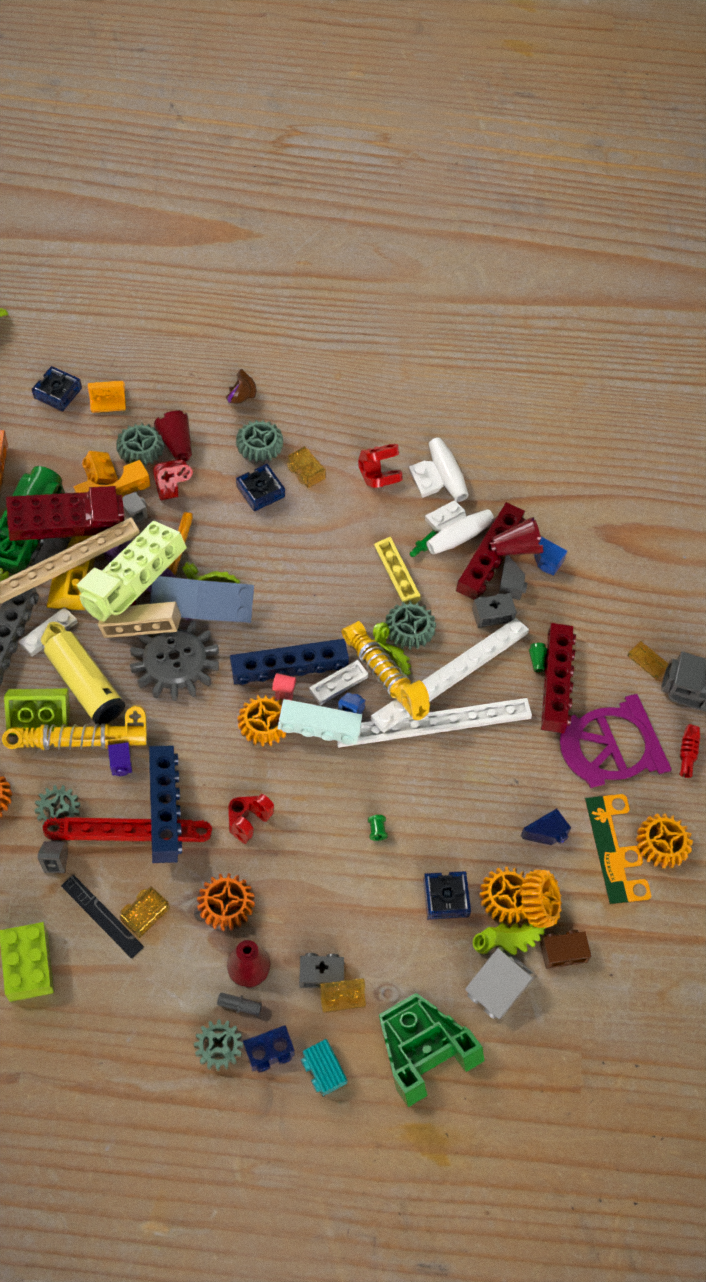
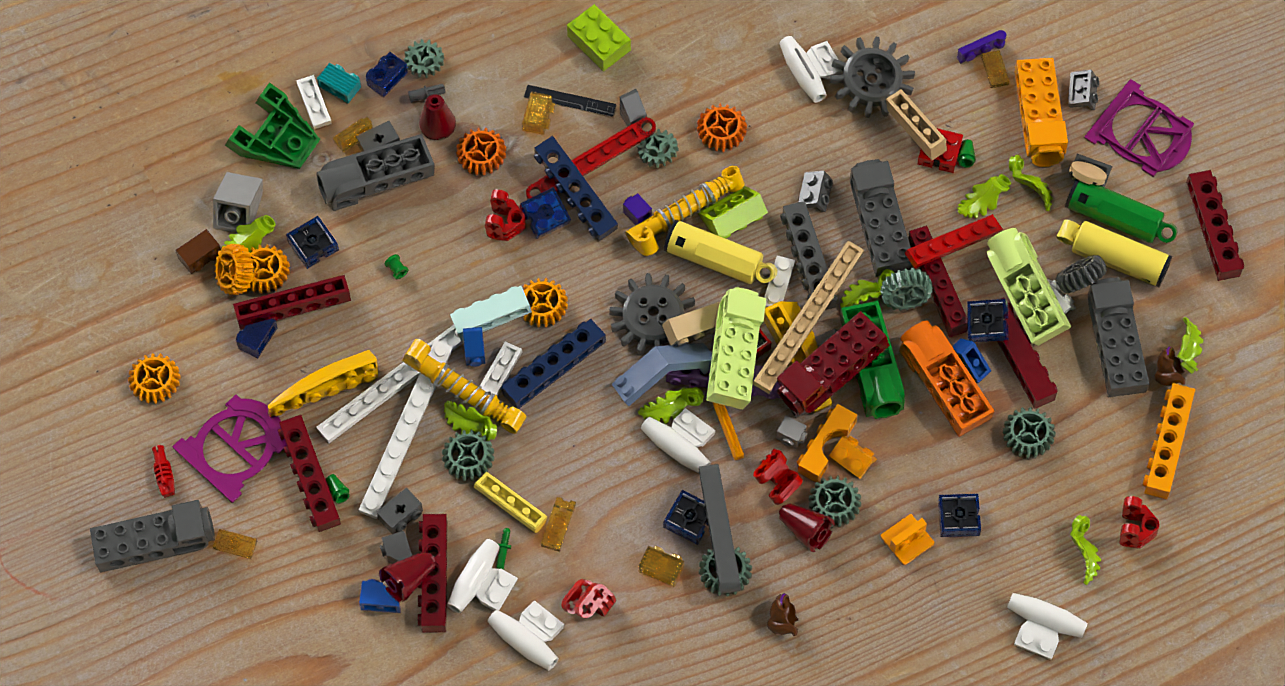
camera: 155 degrees right, 5 degrees up
(60, 300) = (1043, 624): none -> white plate
(206, 800) = (545, 213): none -> clear blue piece
(226, 547) = (681, 439): none -> white plate
(245, 456) = (719, 528): none -> dark grey beam
(283, 686) = (540, 330): coral piece -> none
(345, 931) = (374, 171): none -> dark grey brick
(363, 1061) = (313, 102): none -> white plate
(367, 538) = (558, 524): none -> clear yellow plate
(498, 840) = (293, 301): none -> dark red brick
(500, 745) = (327, 381): none -> yellow wedge
(610, 854) = (196, 351): piece -> none

